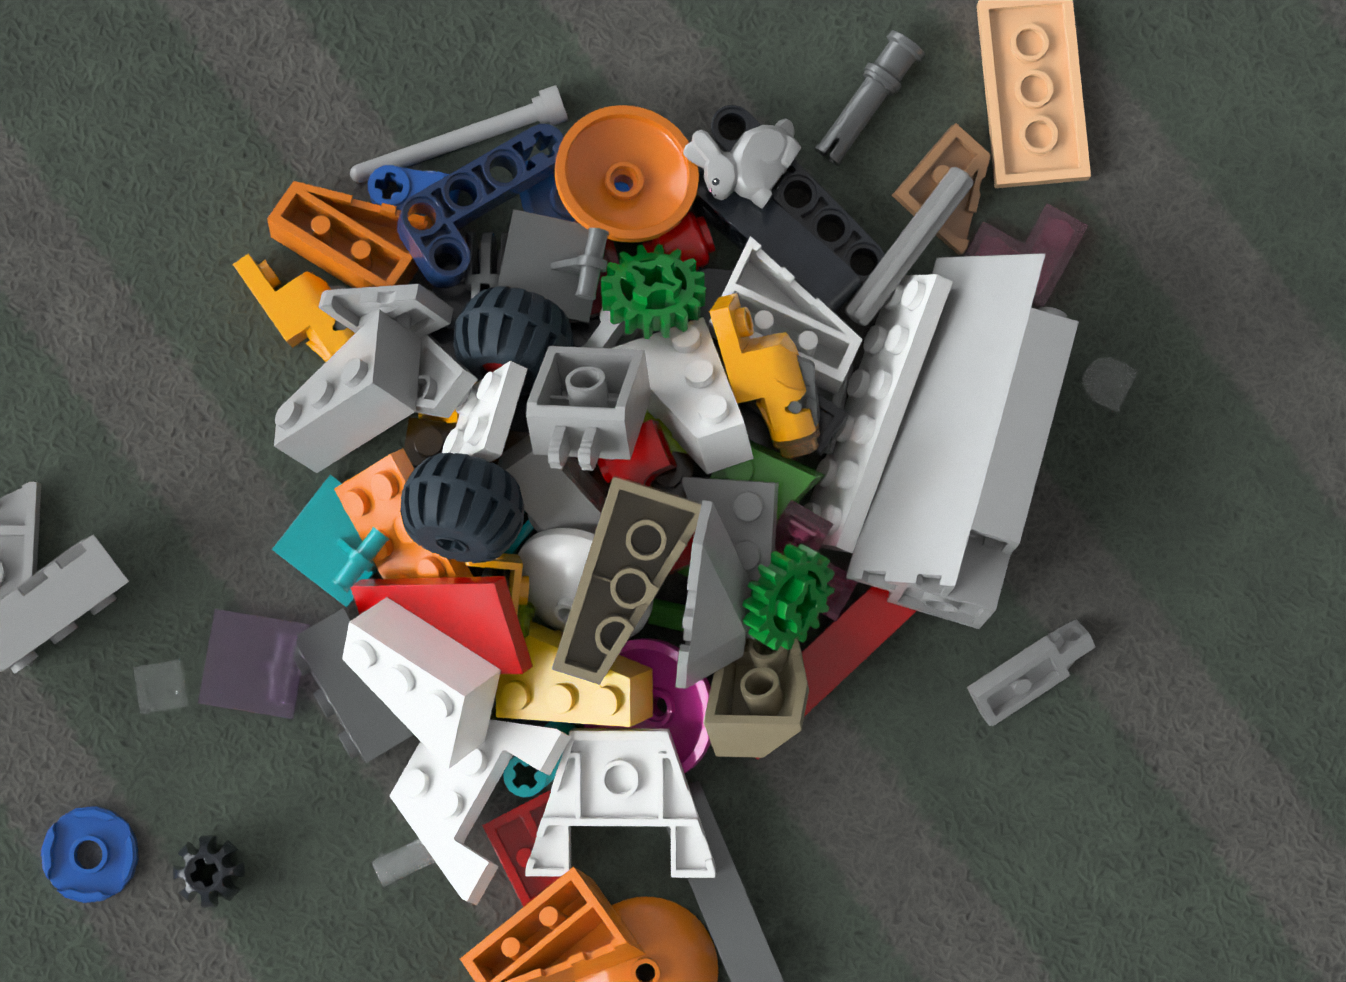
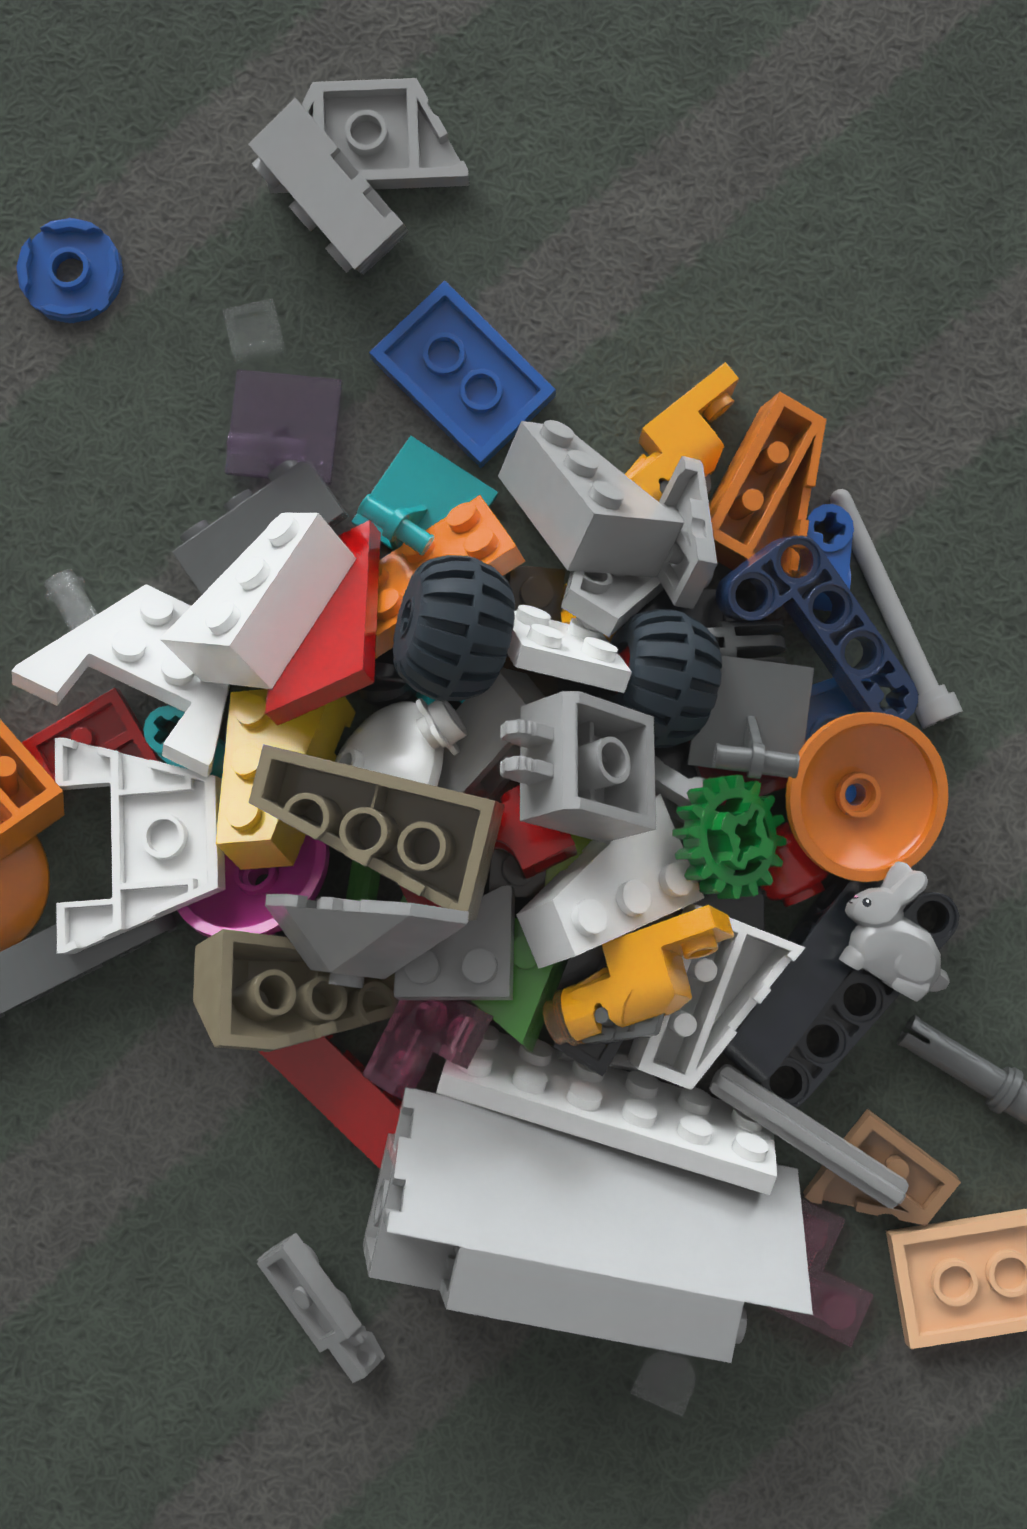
camera: 85 degrees right, 0 degrees up
(219, 499) = (462, 374): none -> blue plate
(220, 881) = (33, 395): black piece -> none
(517, 583) = (378, 706): light orange bracket -> none
(525, 615) = (350, 715): clear neon green piece -> none
(542, 526) = (440, 725): none -> white plate
(788, 596) = (376, 1020): green gear -> none

